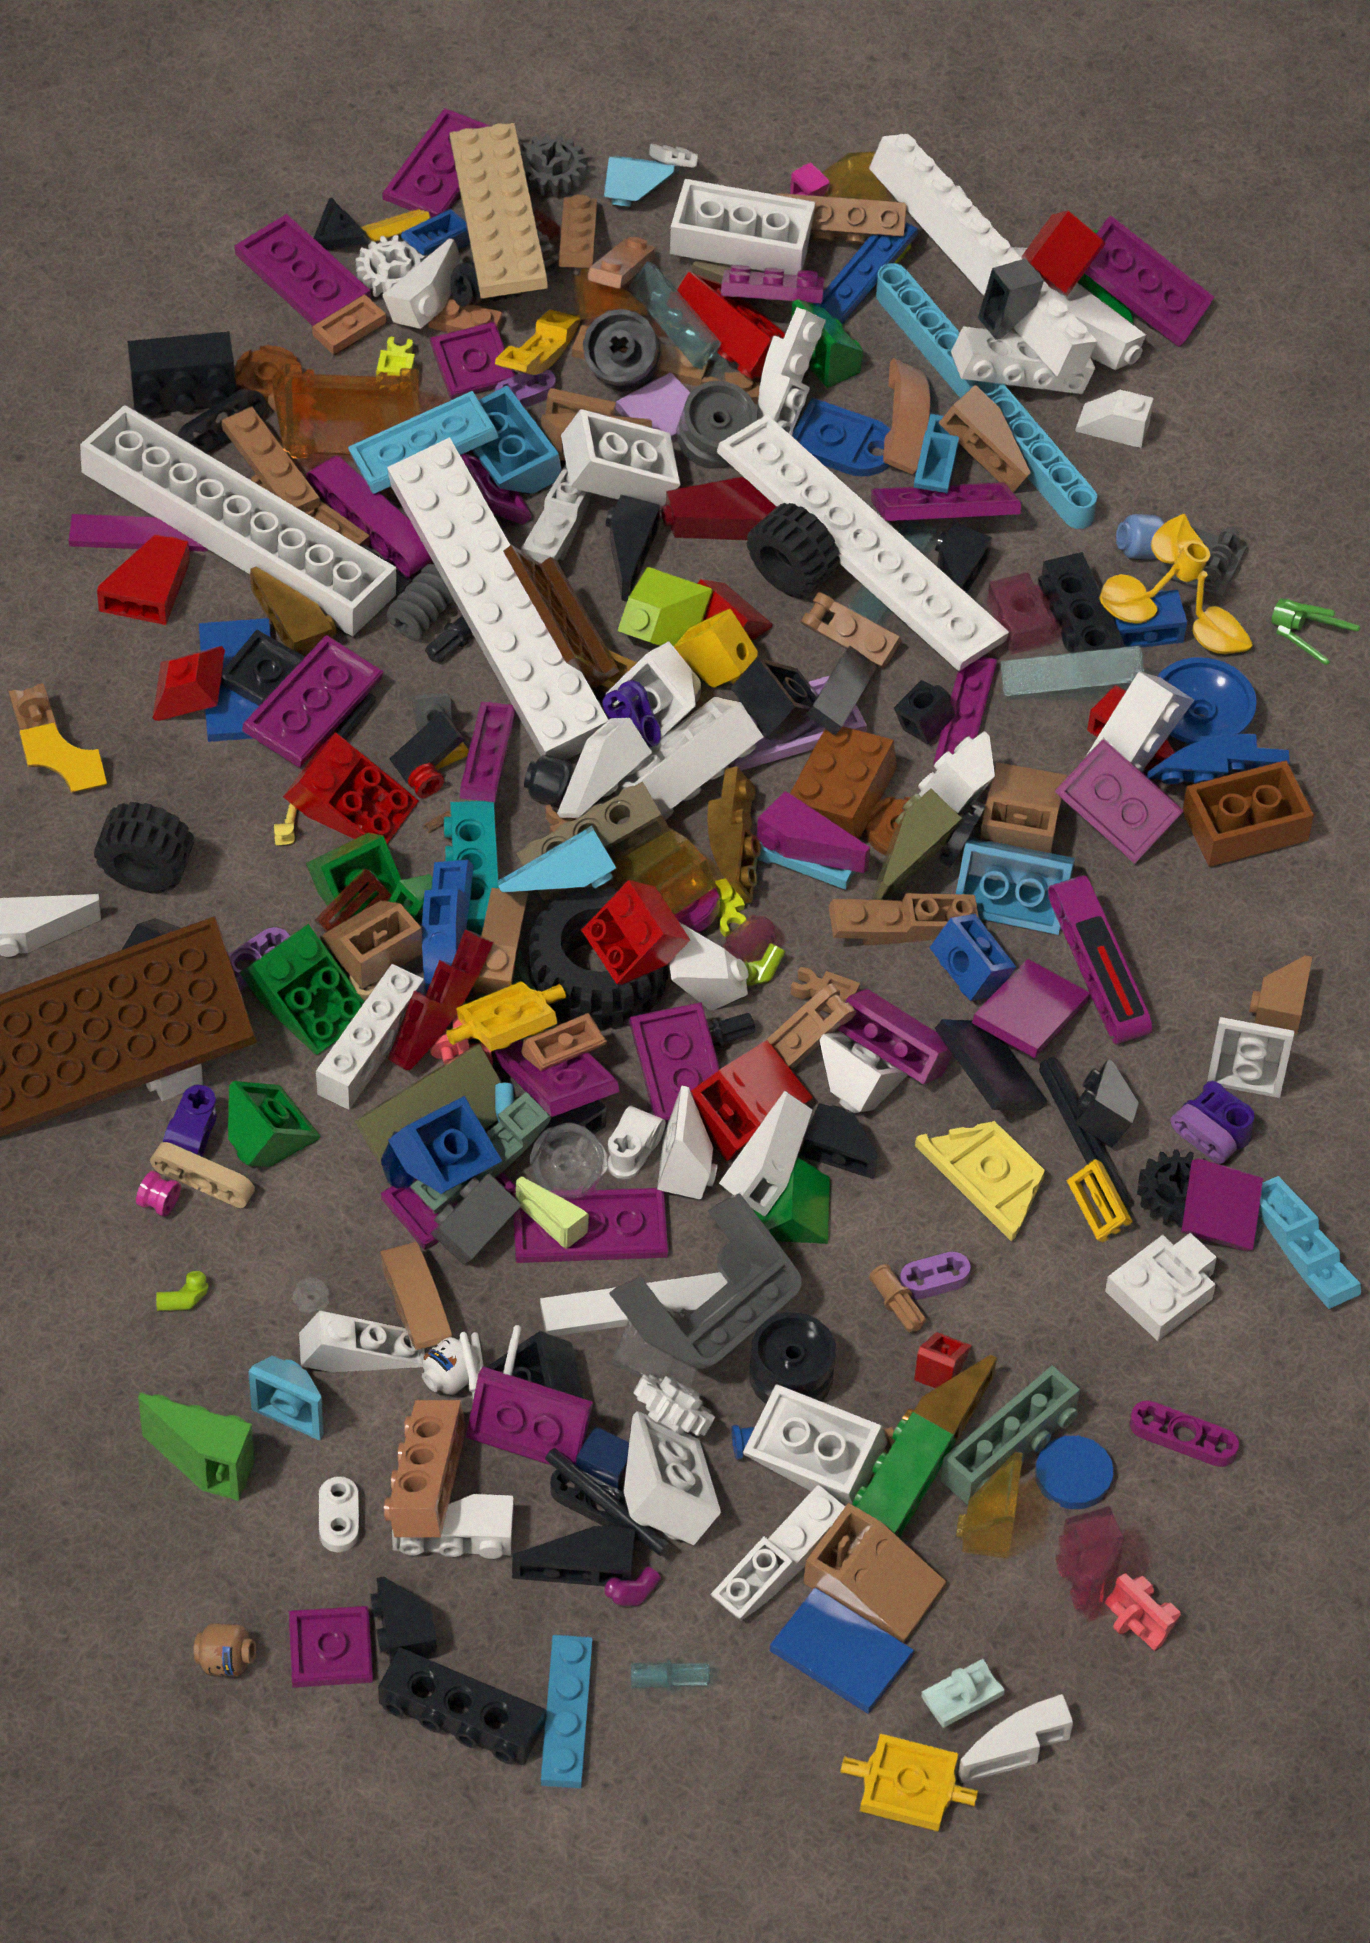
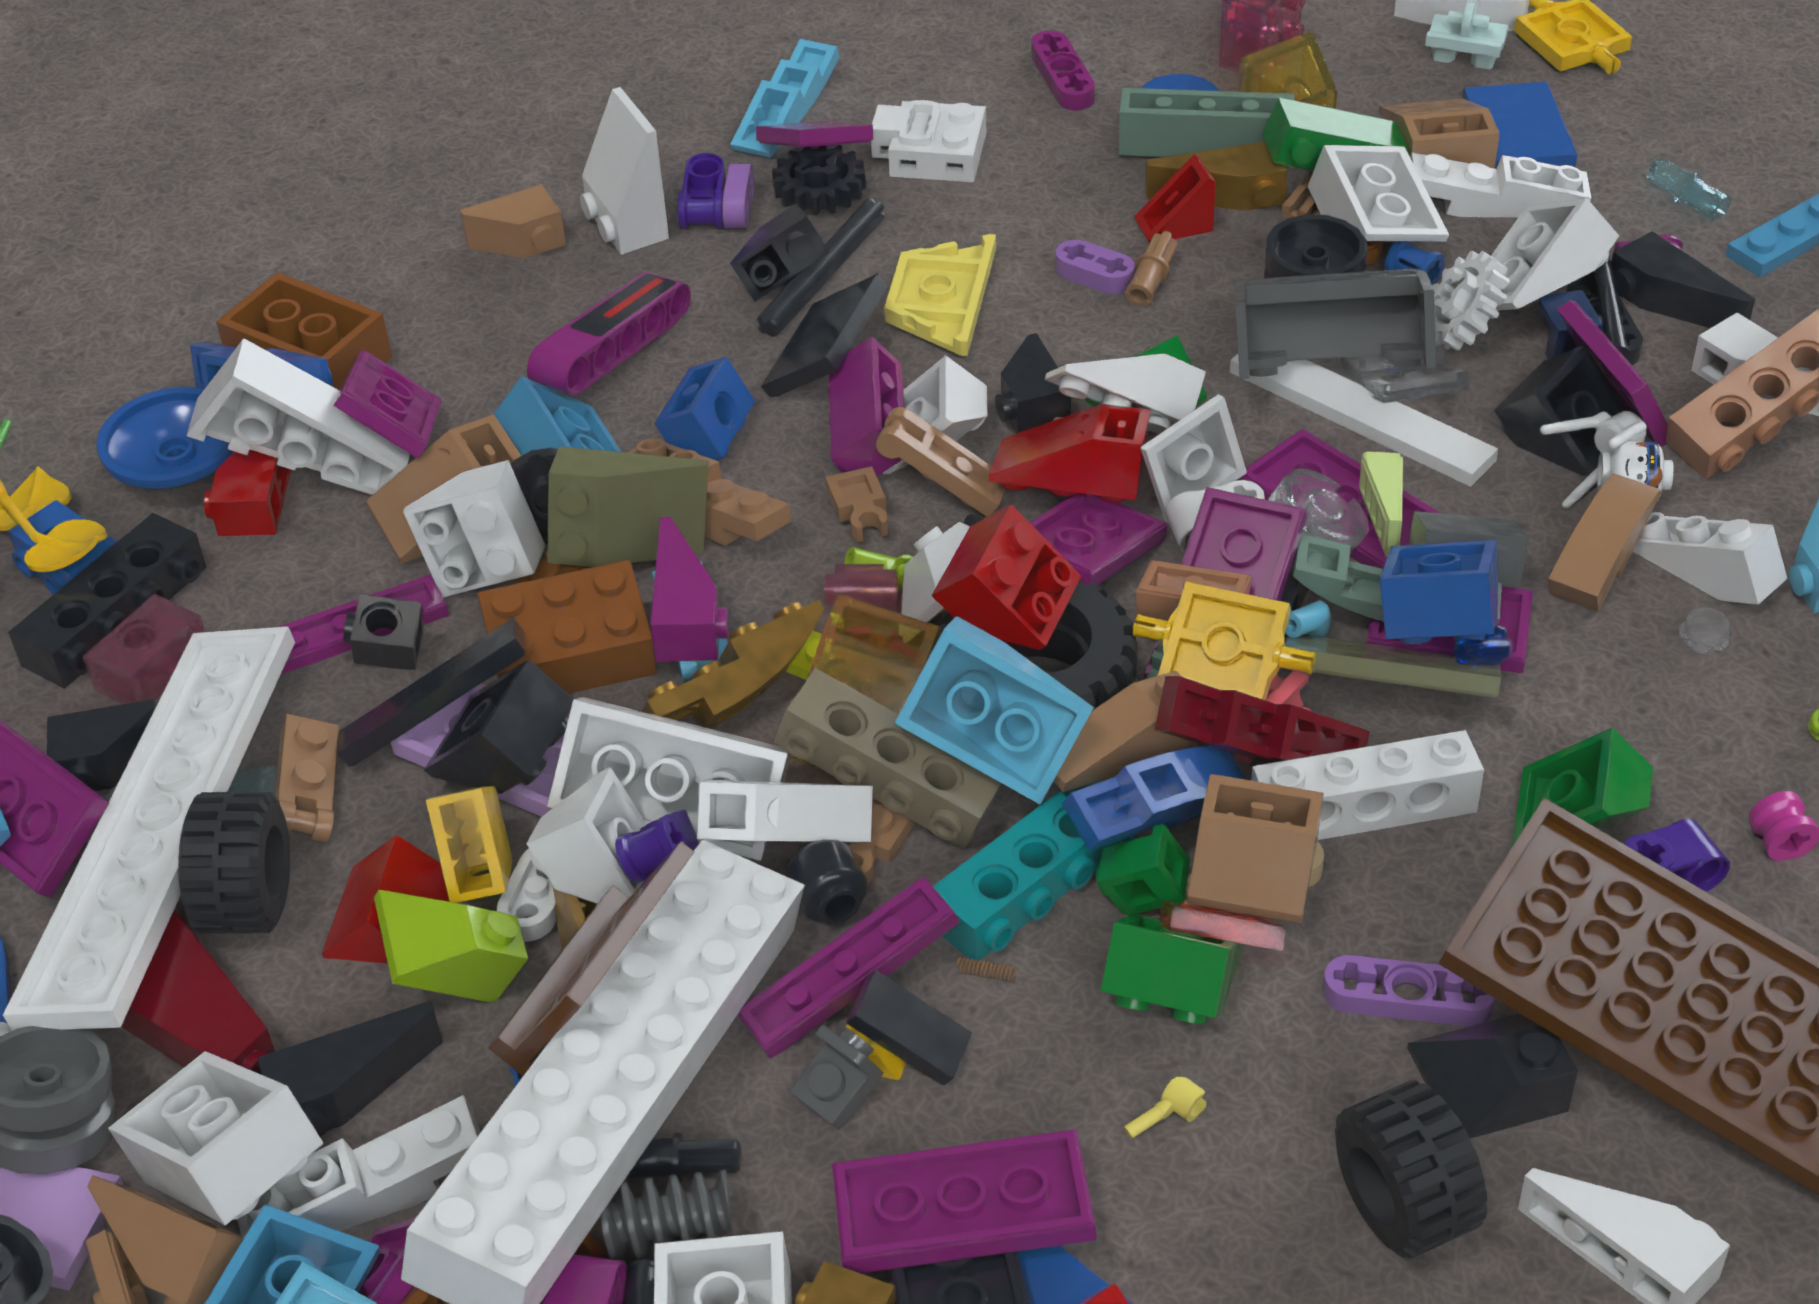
camera: 125 degrees left, 10 degrees down
(202, 1173) = (1711, 805): tan beam -> none
(304, 989) = (1379, 901): green slope -> none
(349, 792) = (1060, 1068): red slope -> none
(425, 780) = (955, 1001): red bush -> none
(1031, 1008) = (749, 338): magenta tile -> none
(1071, 671) = (217, 543): clear light blue tile -> none
(1113, 1224) = (873, 231): yellow tile -> none

